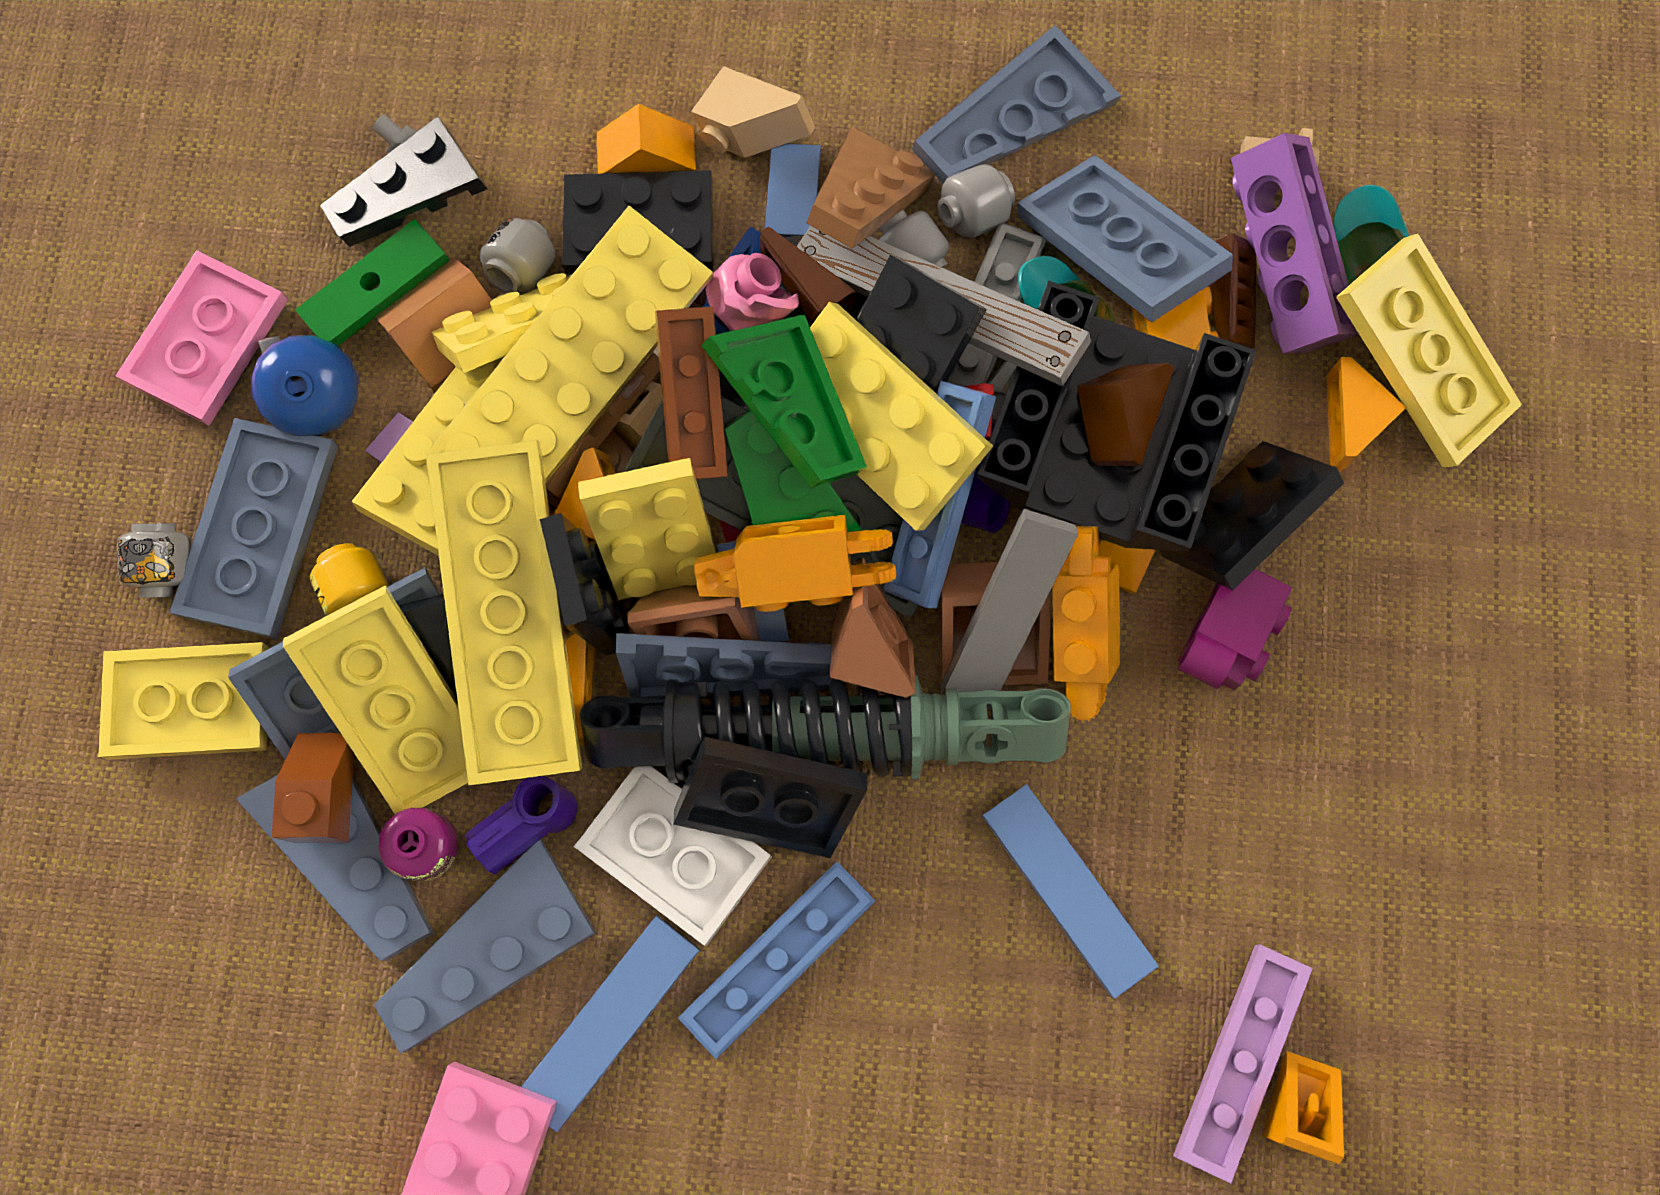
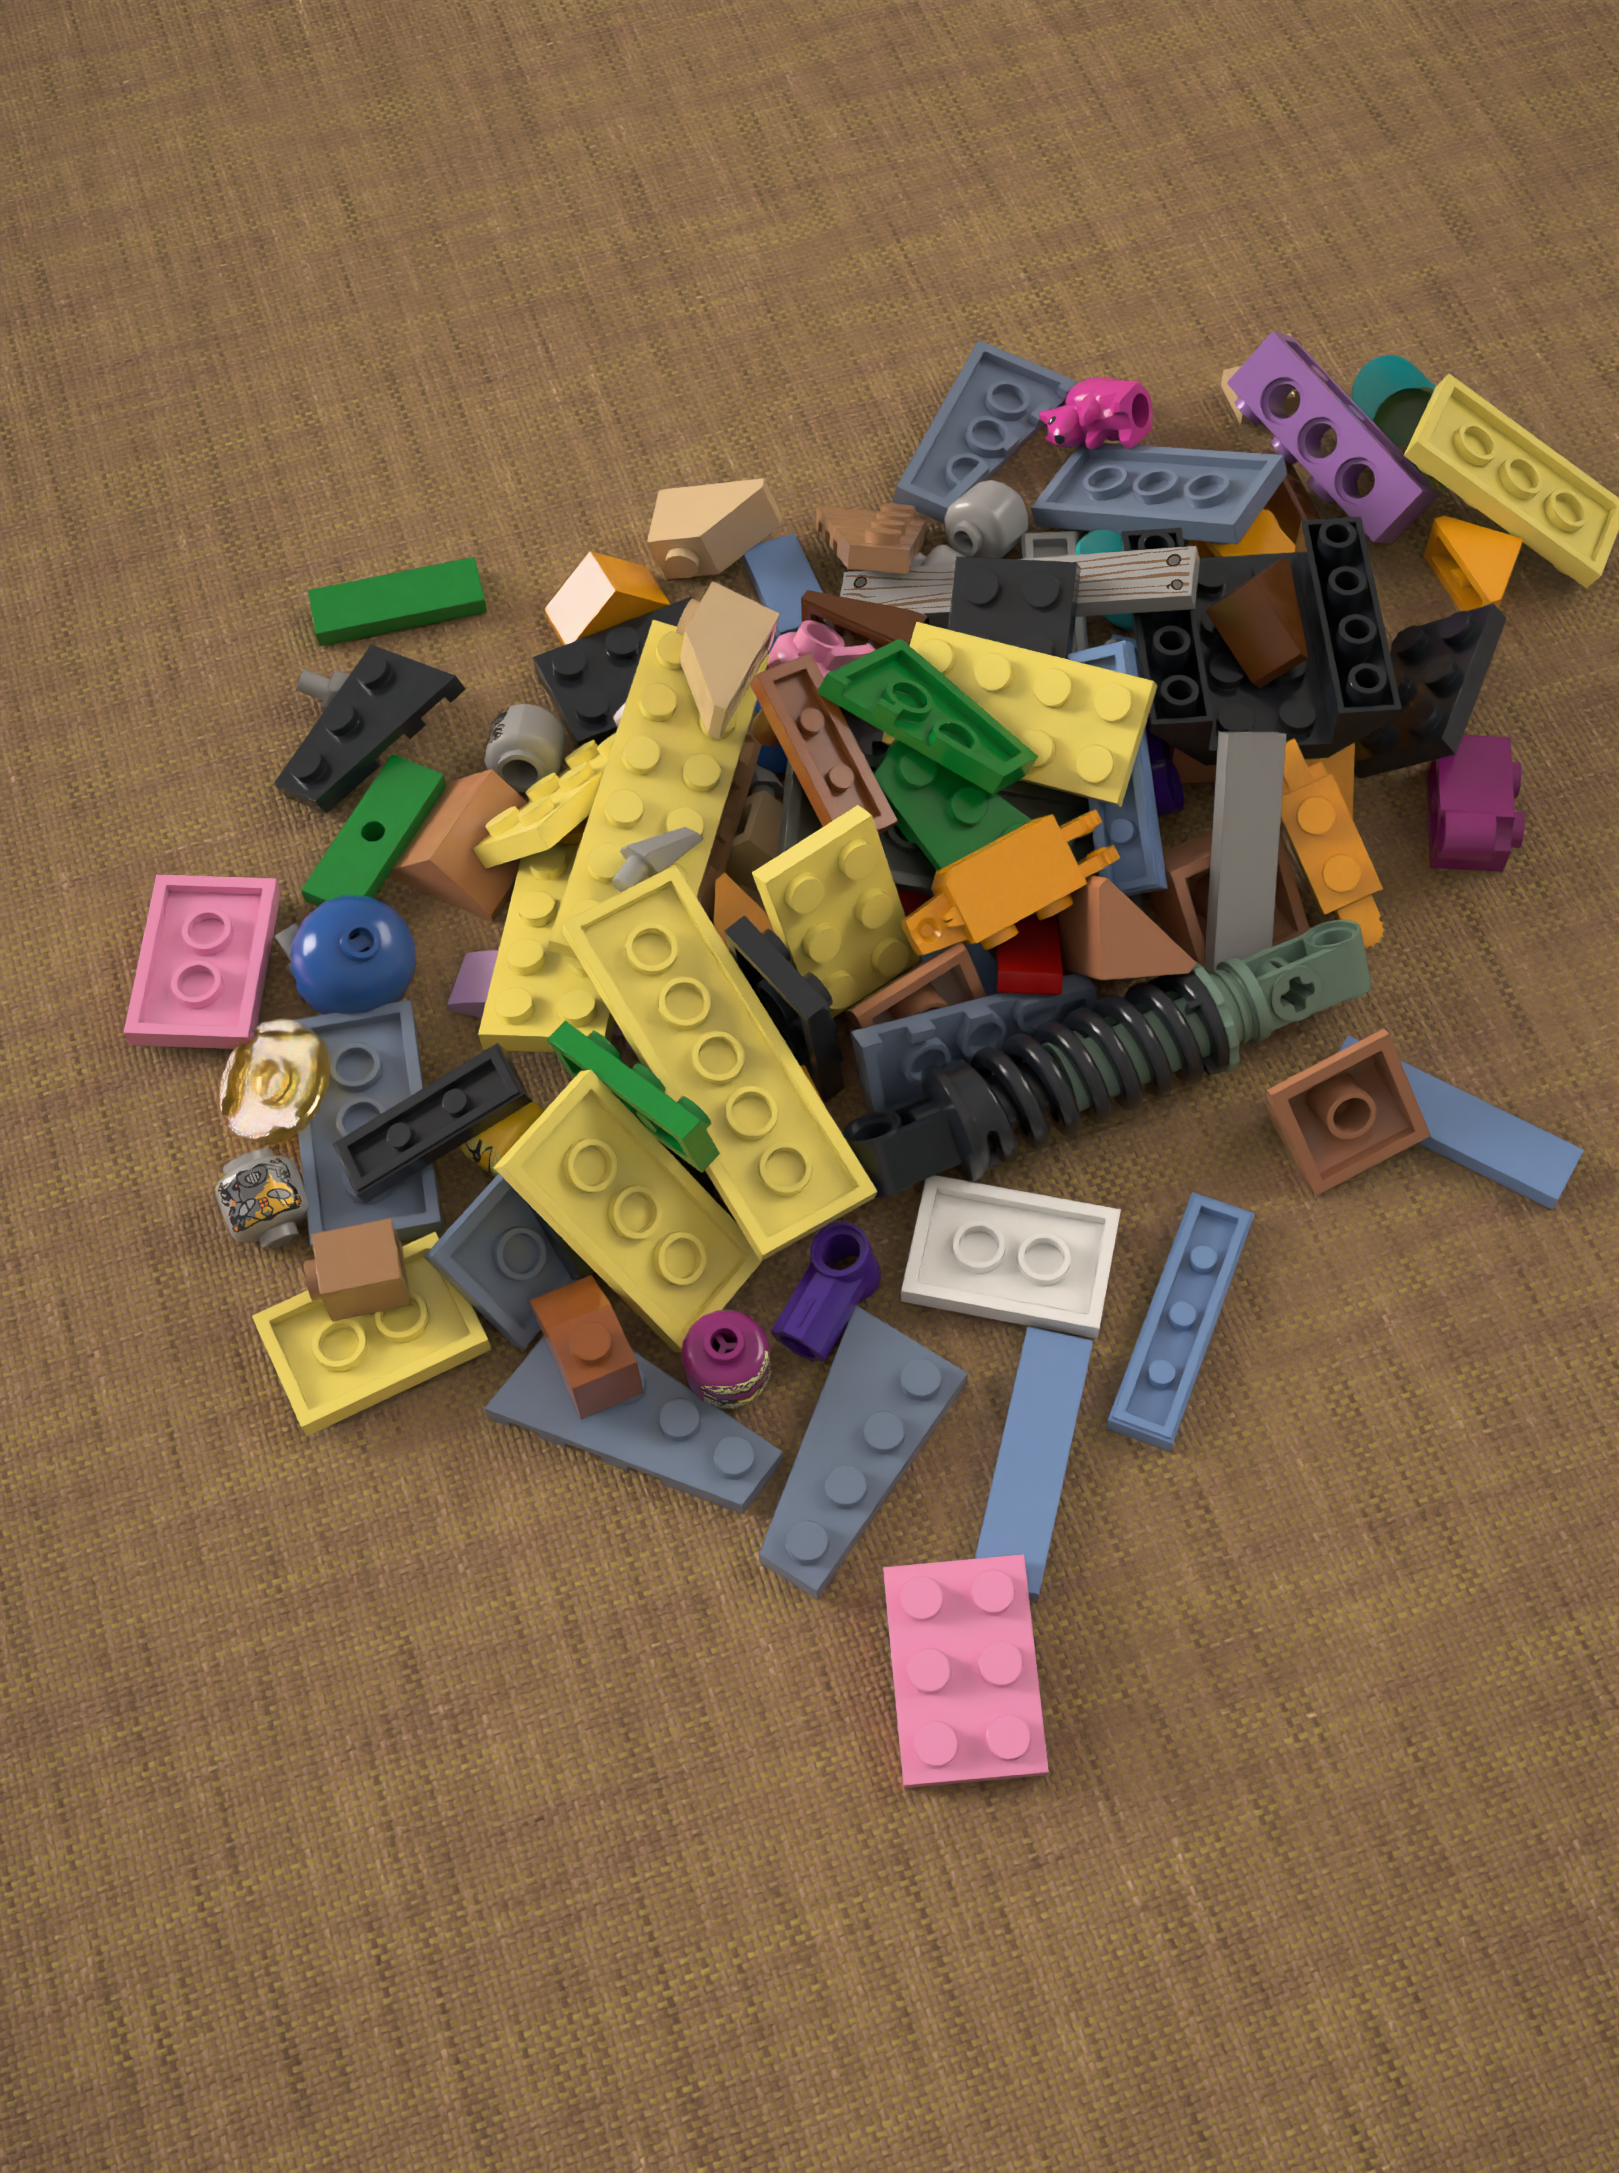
camera: 25 degrees left, 15 degrees down
(182, 657) = (358, 1270): none -> medium nougat brick
(203, 466) = (275, 1082): none -> clear yellow tile
(288, 559) = (431, 1123): none -> black tile
(420, 621) = (673, 1123): none -> green plate
(487, 78) = (397, 601): none -> green tile
(530, 420) = (653, 856): none -> light grey bar
(661, 264) = (723, 651): none -> tan slope
(769, 797) = (1095, 1137): black plate -> none
(795, 629) = (1031, 958): none -> red tile
(982, 858) = (1347, 1112): none -> nougat slope
(1122, 137) = (1100, 411): none -> dark pink animal

